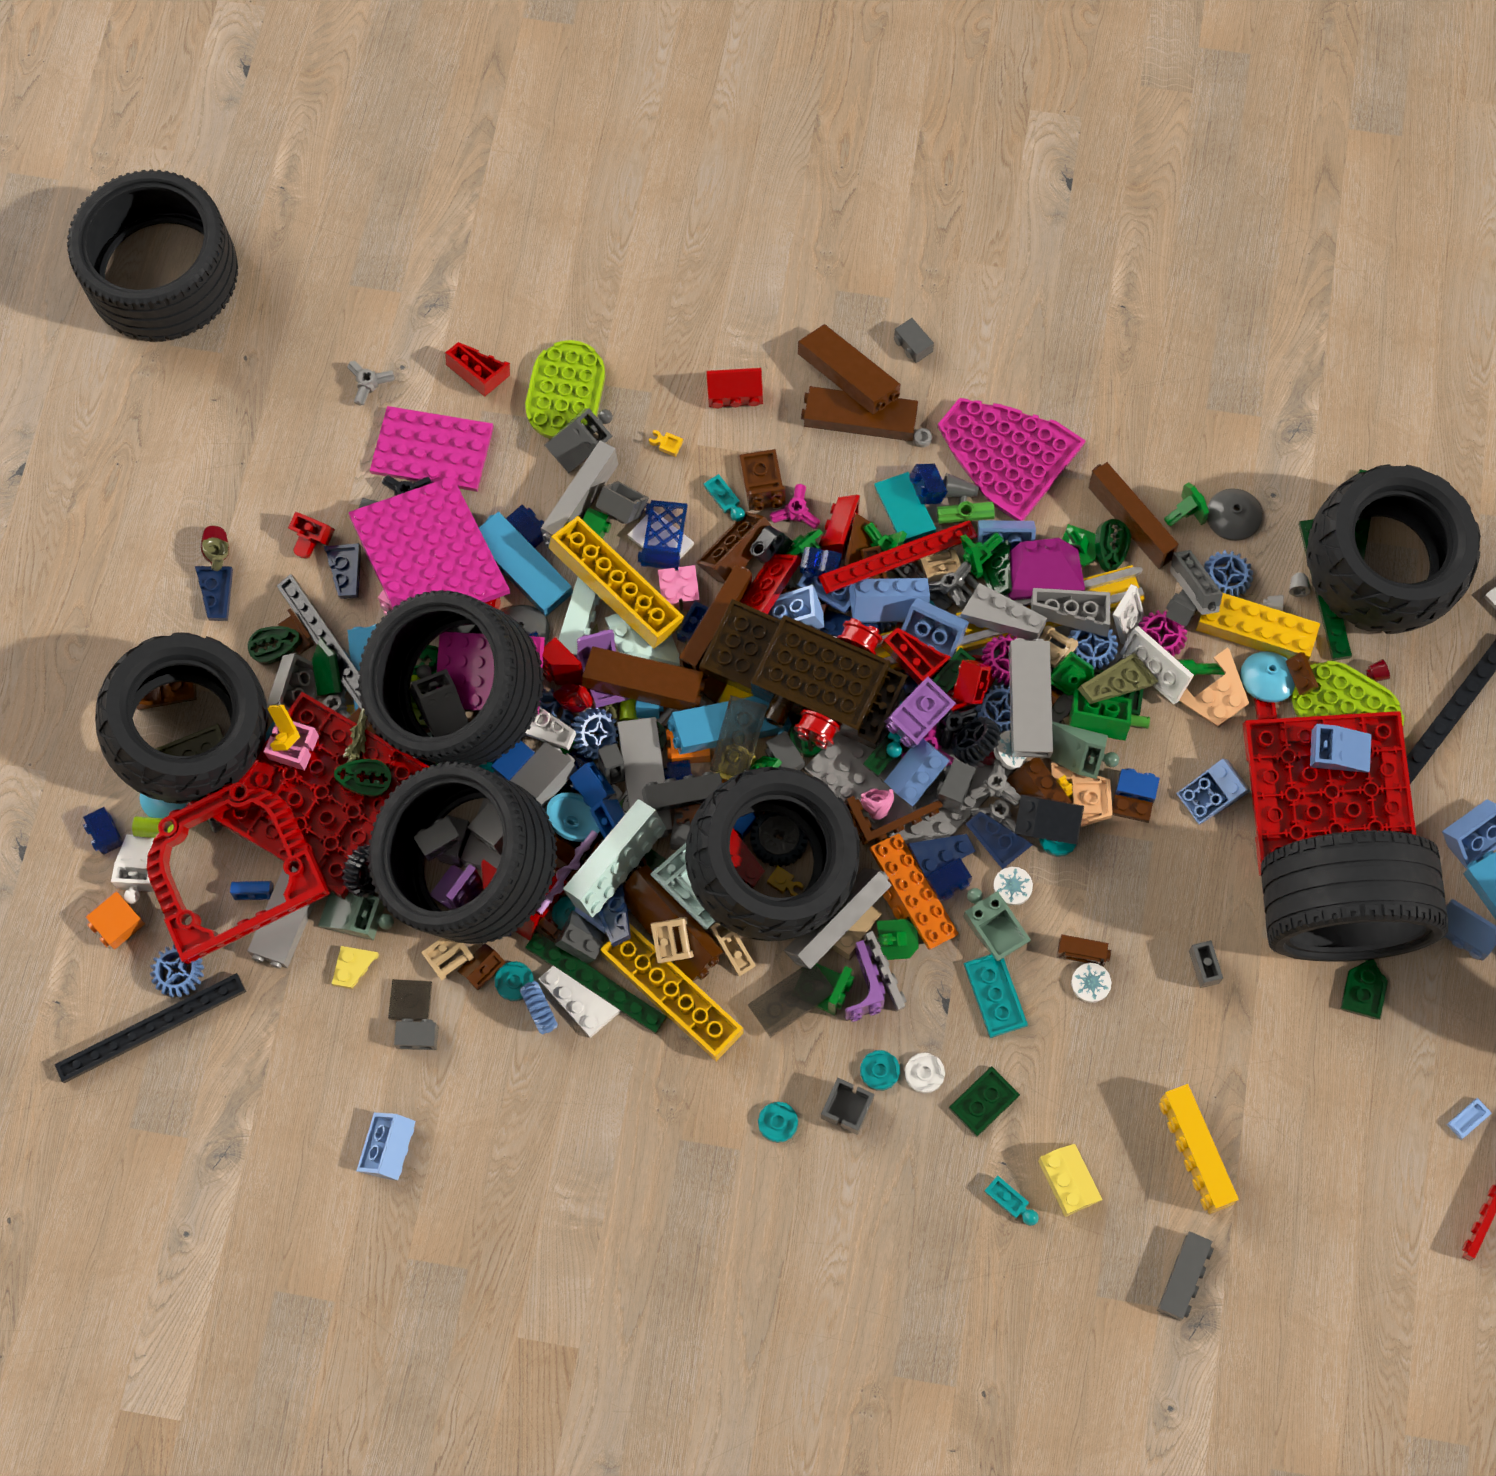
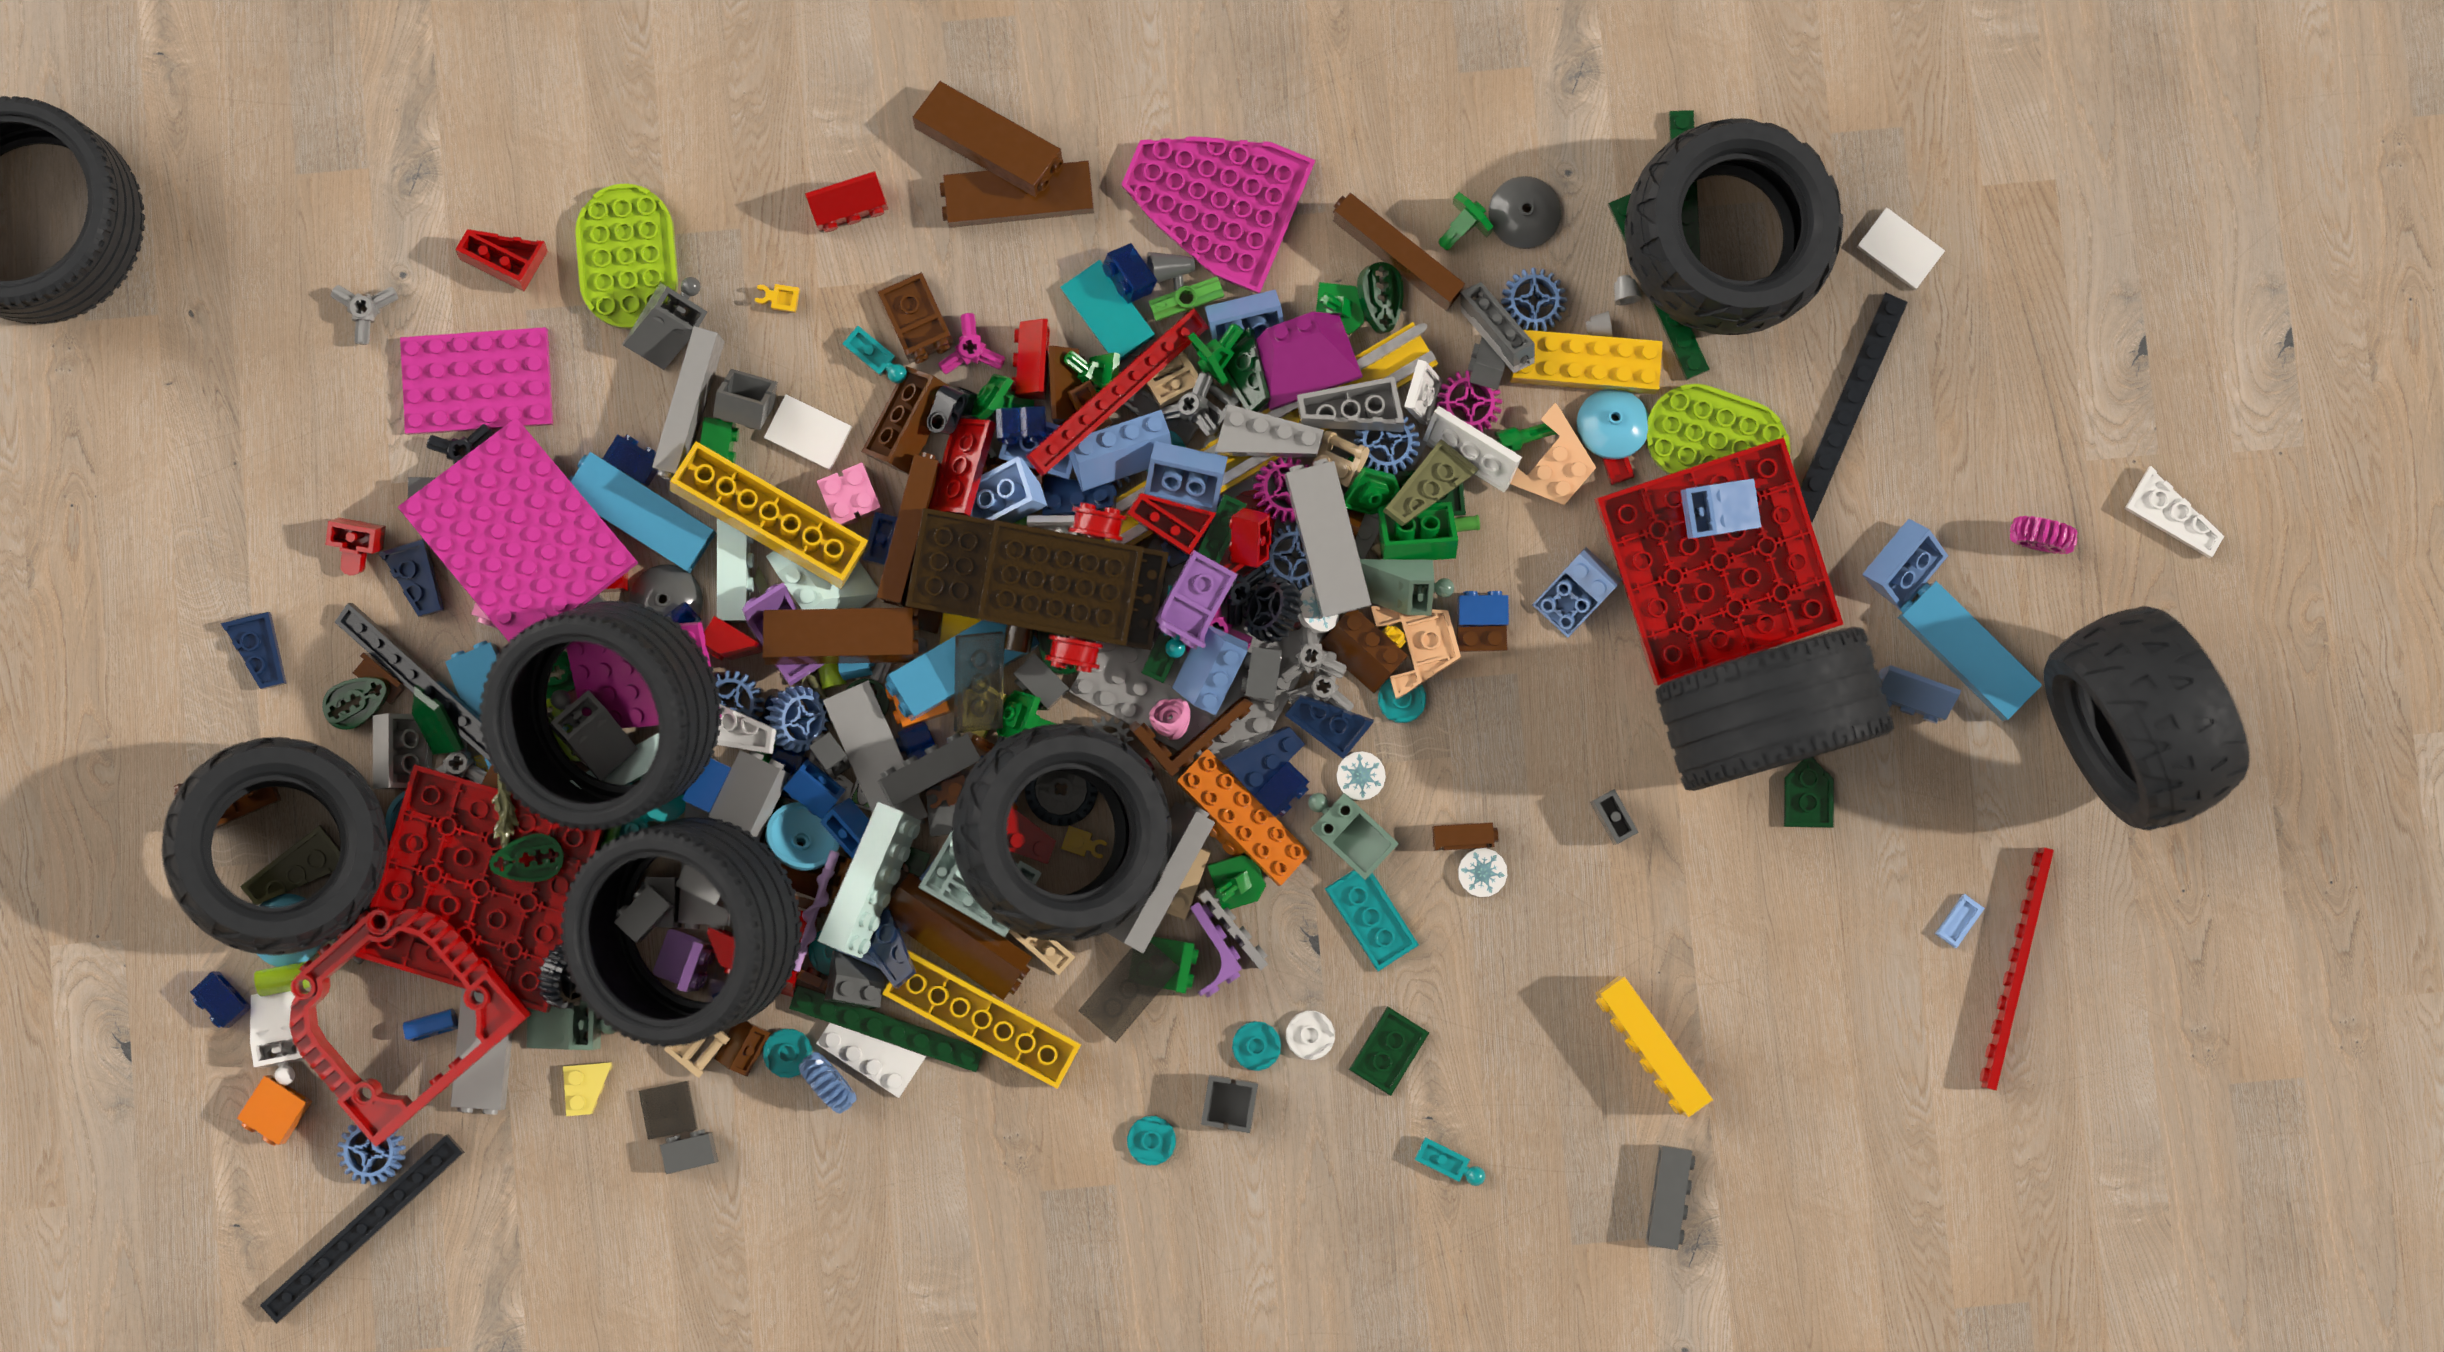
camera: 20 degrees left, 15 degrees up
(214, 546) = (238, 591): olive hair -> none
(286, 727) = (417, 833): yellow bracket -> none
(298, 754) = (425, 842): bright pink piece -> none
(386, 1145) = (693, 1295): light blue slope -> none
(573, 697) = (757, 681): hair -> none
(662, 555) = (810, 459): clear blue piece -> none
(665, 941) = (959, 966): tan plate -> none
(913, 340) = (1060, 72): dark grey brick -> none
(922, 437) = (1105, 206): light grey tile -> none
(1049, 819) = (1385, 686): black slope -> none
(1069, 1179) = (1511, 1118): light yellow slope -> none
(1302, 673) = (1653, 414): reddish brown plate -> none
(1378, 671) = (1745, 383): dark red hat -> none

